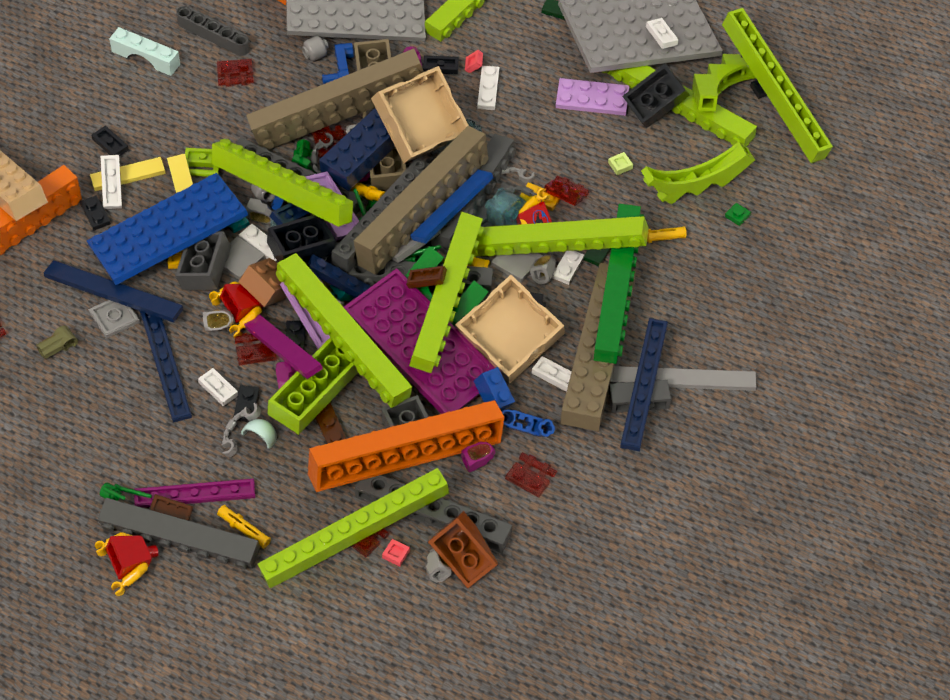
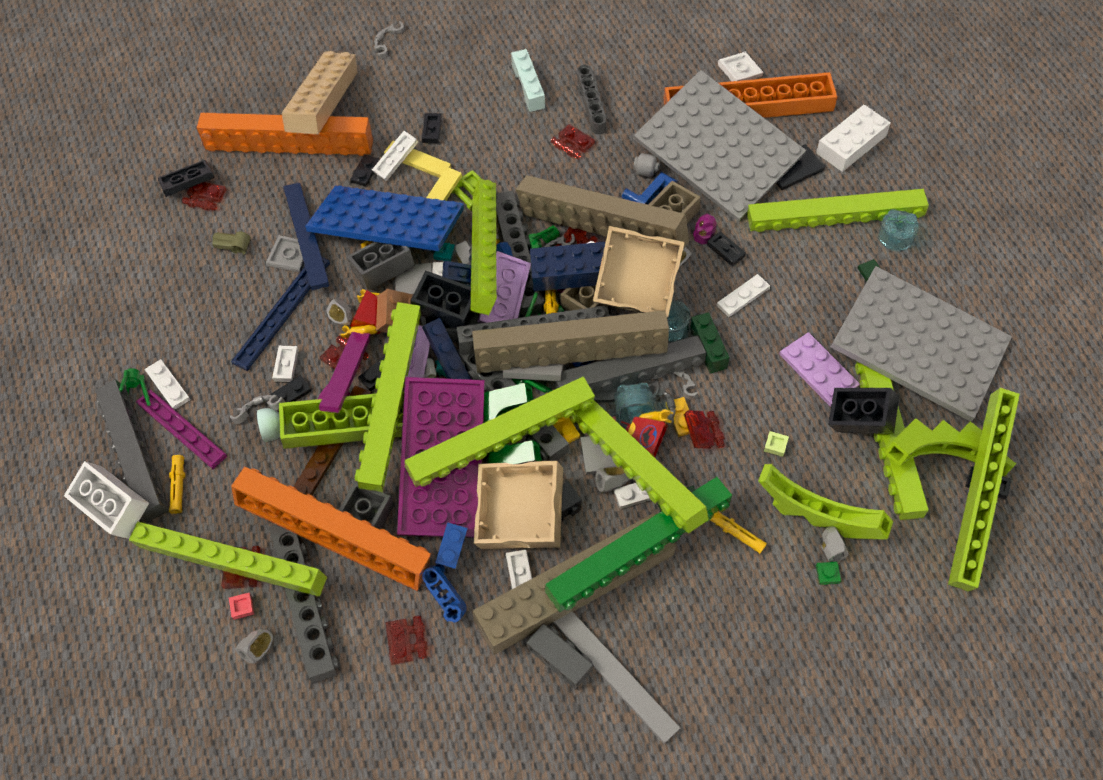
camera: 50 degrees right, 5 degrees up
(128, 556) = (81, 436): red torso -> none
(141, 475) = (167, 384): none -> white plate
(171, 507) = (149, 426): reddish brown plate -> none
(214, 571) = (106, 500): none -> white brick
(426, 277) = (493, 406): reddish brown plate -> none
(451, 206) = (589, 366): blue tile -> none
(464, 549) = (276, 652): dark orange slope -> none
(474, 61) = (754, 266): coral plate -> none
(477, 455) = (382, 585): magenta rock -> none
(494, 125) = (716, 354): none -> dark green brick
(644, 385) = (566, 651): dark blue tile -> none
(662, 33) = (929, 361): white plate -> none
(723, 193) = (833, 545): none -> light grey rock

